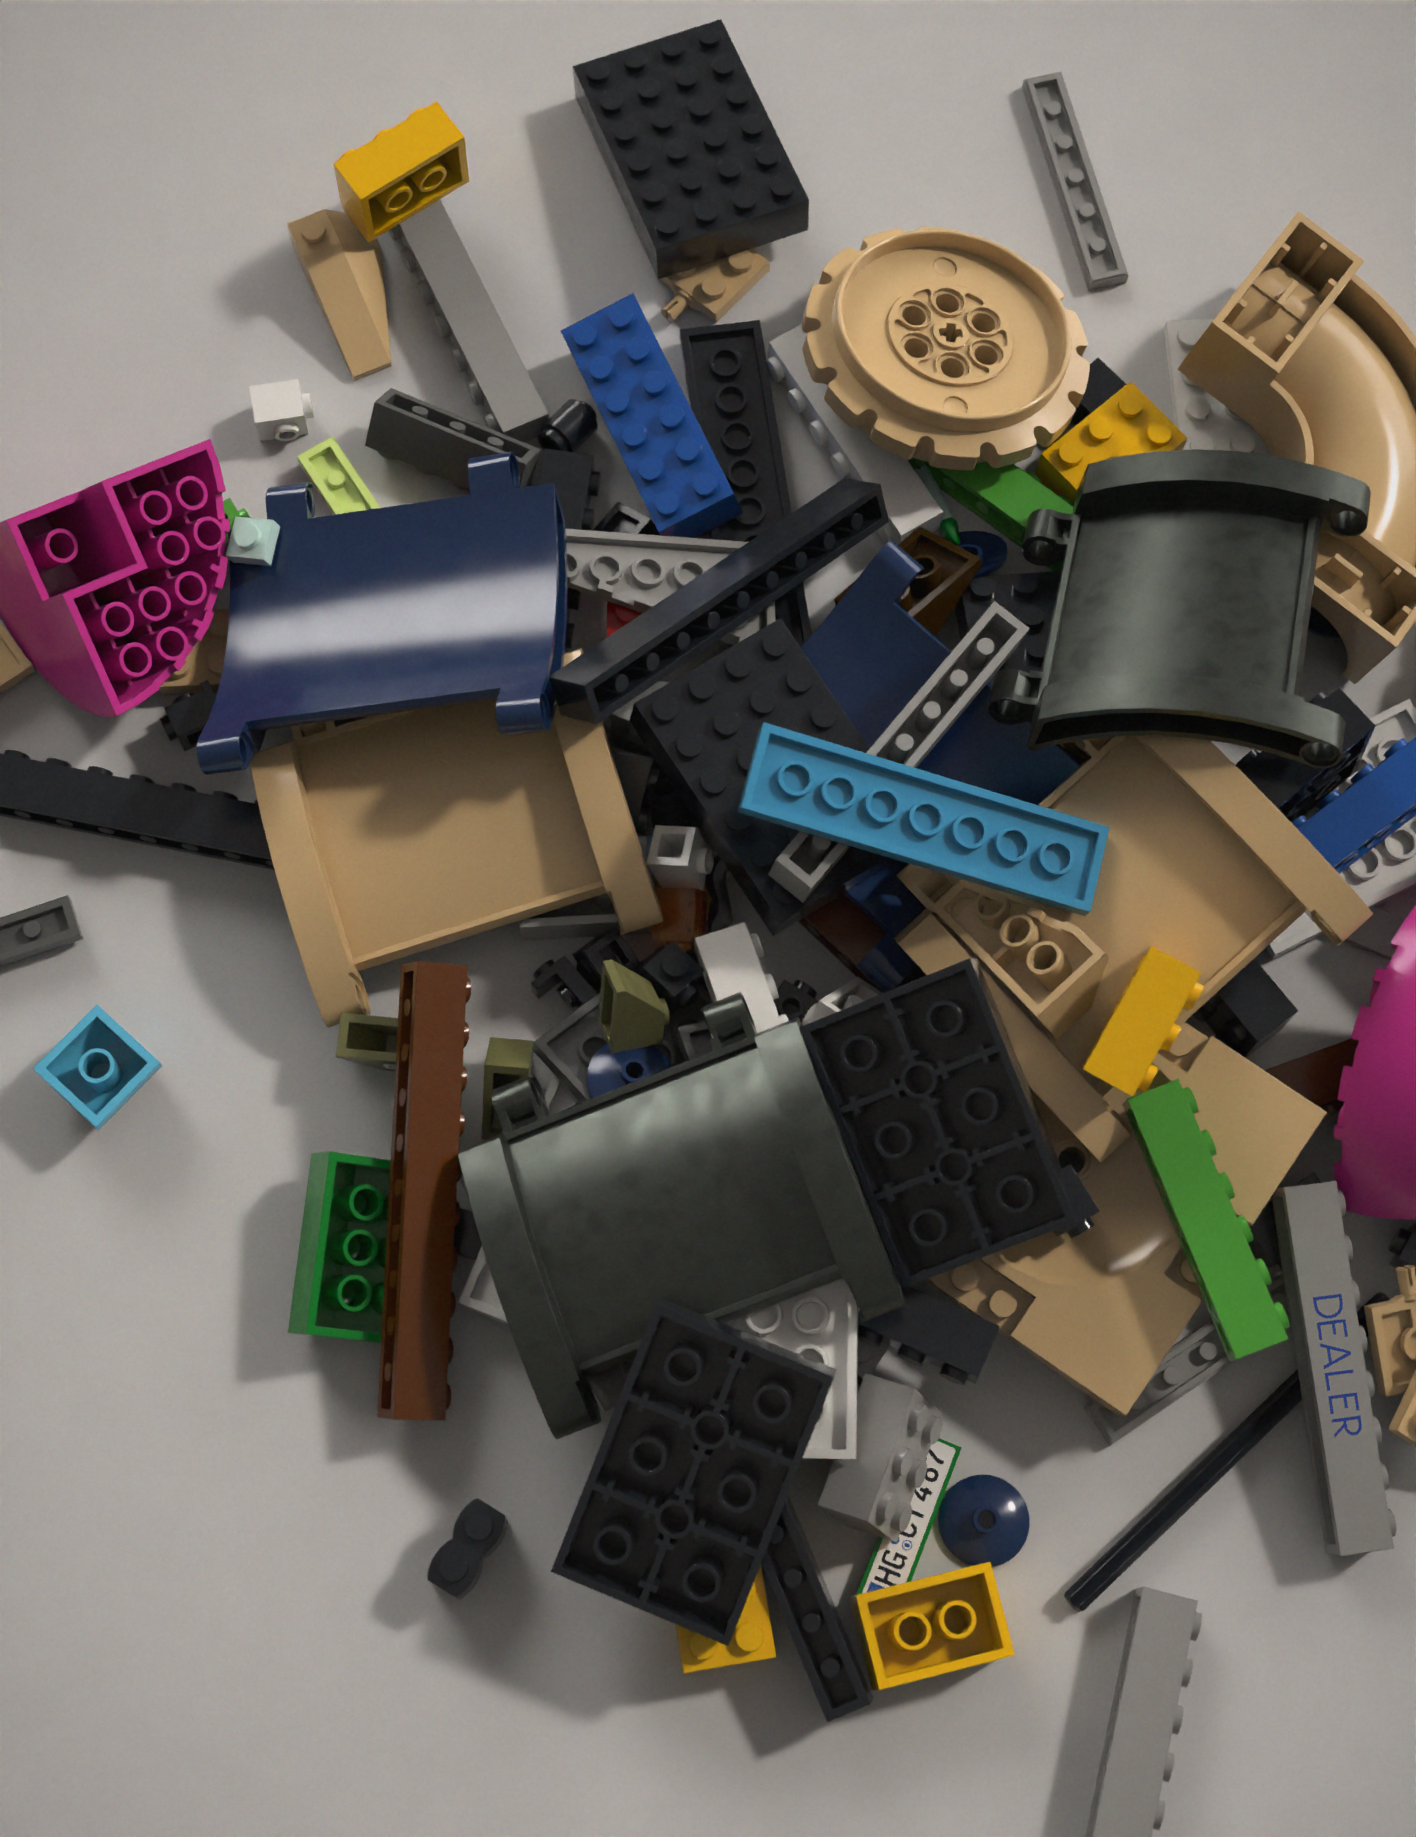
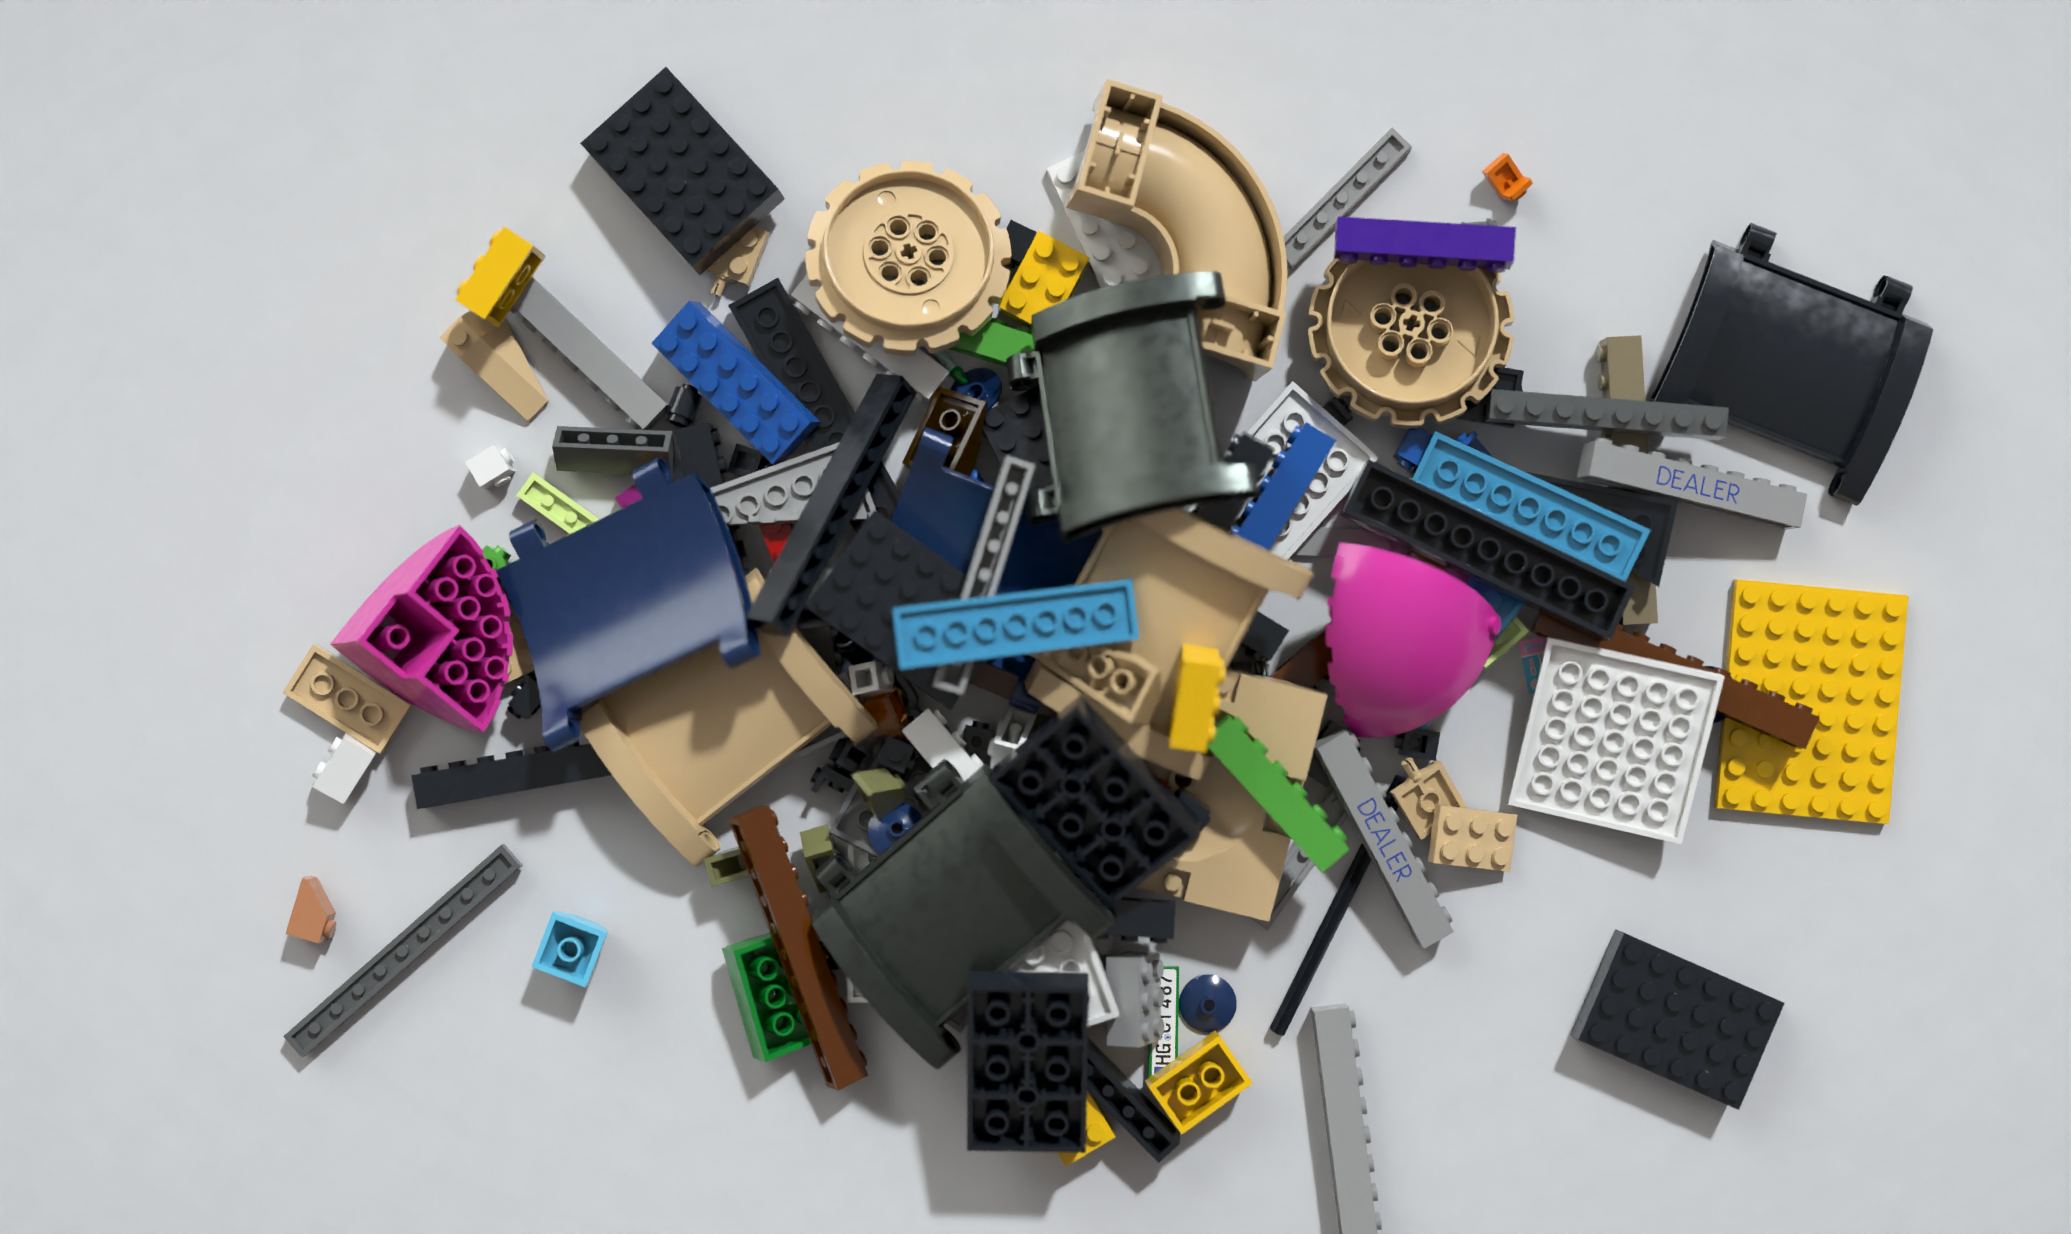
camera: 20 degrees left, 15 degrees up
(253, 541) = (515, 575): light aqua plate -> none
(475, 1537) = (912, 1136): black brick -> none
(1075, 181) = (948, 84): light grey tile -> none

